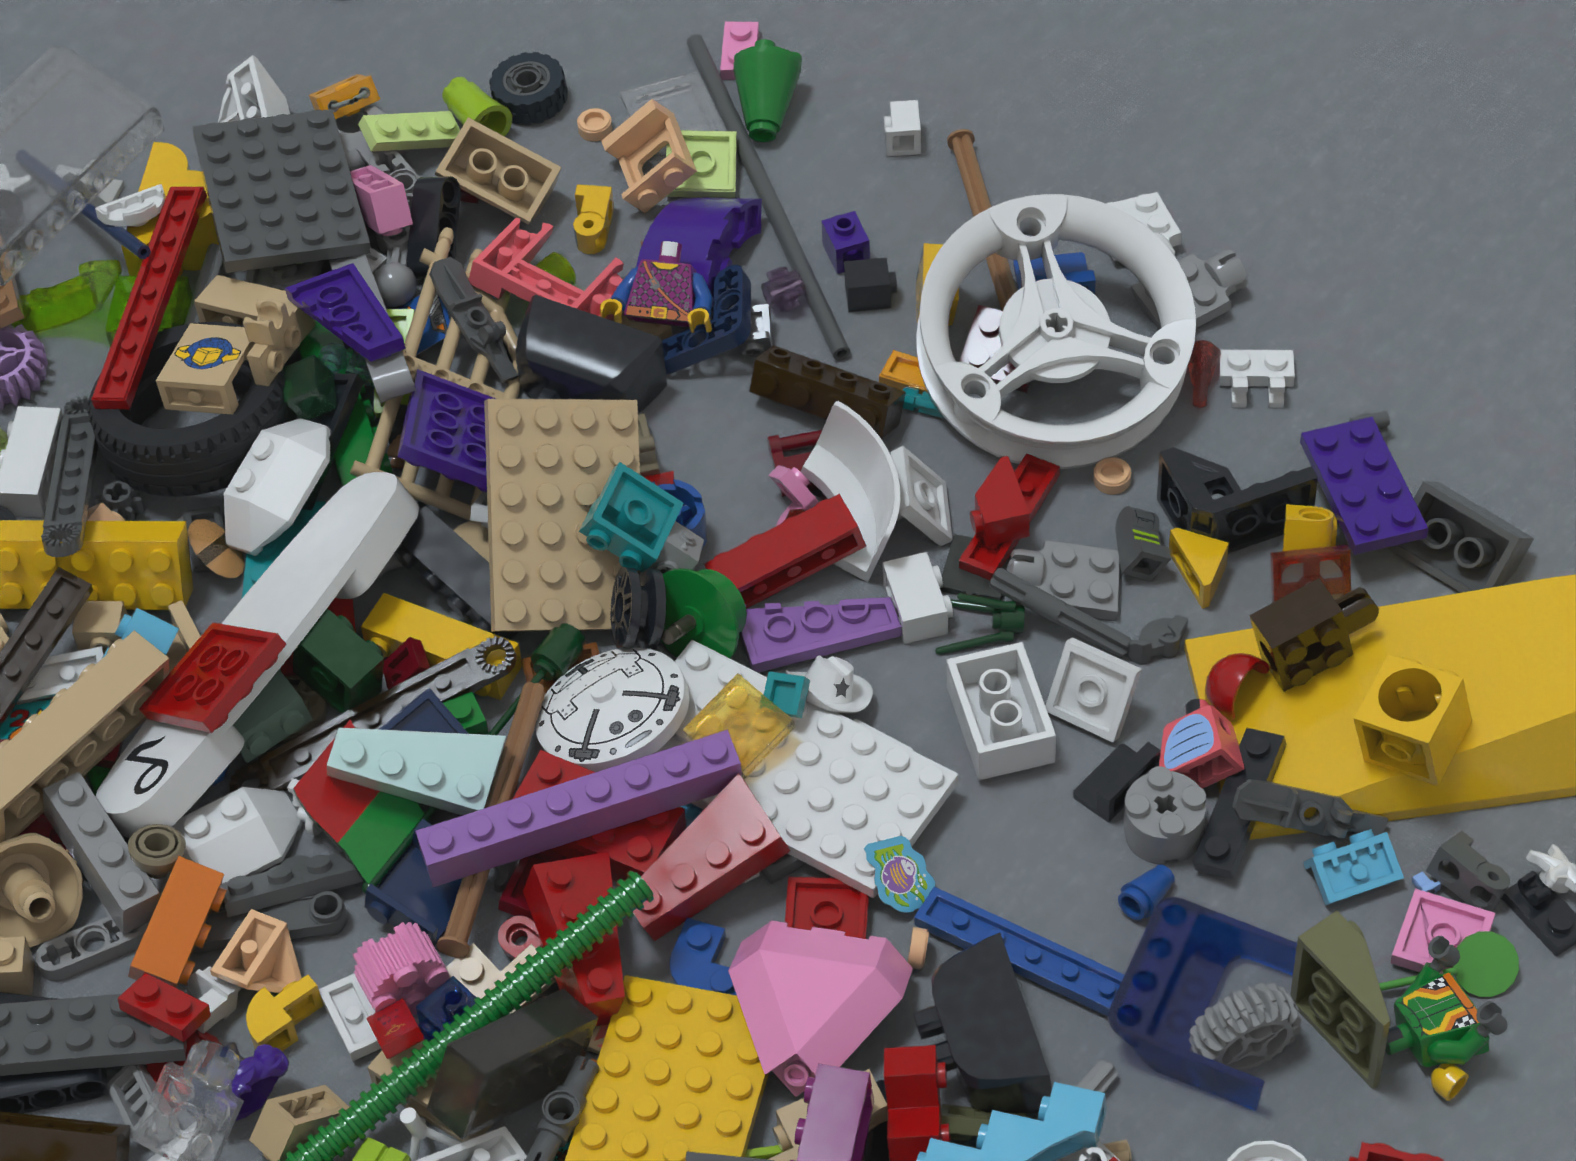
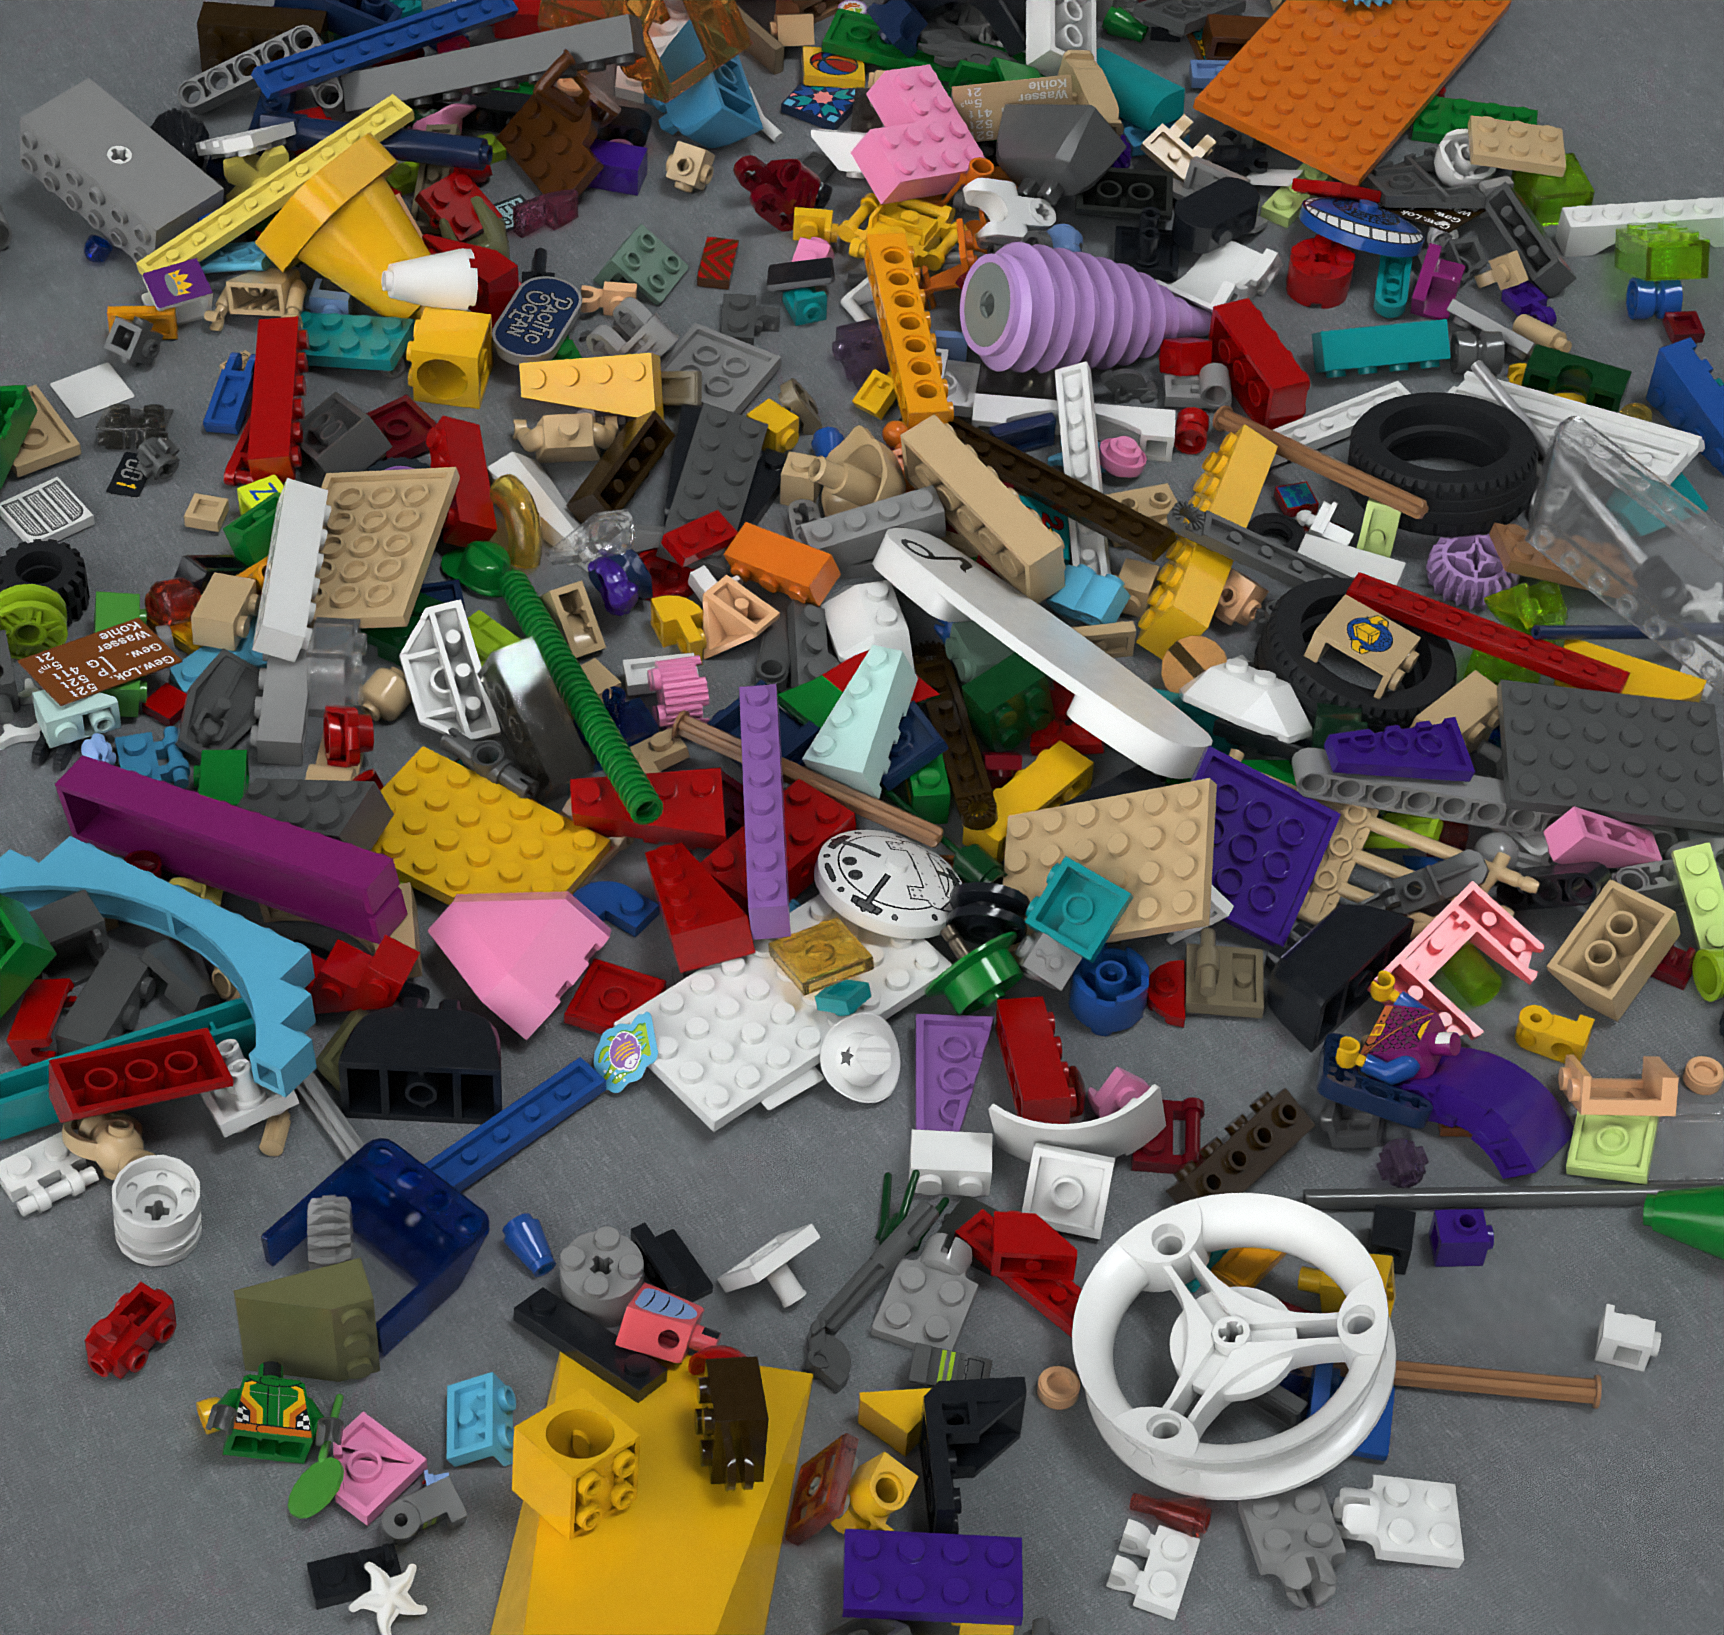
camera: 100 degrees right, 5 degrees down
(133, 209) = (1604, 642): white plate -> none
(156, 849) = (852, 551): dark tan brick -> none
(213, 677) = (997, 591): red plate -> none
(275, 339) = (1376, 685): tan plate -> none
(395, 1028) = (615, 670): red tile -> none
(918, 947) = (549, 1053): light nougat tile -> none
(1001, 711) = (777, 1181): white brick -> none
(1286, 807) = (556, 1369): dark grey piece -> none

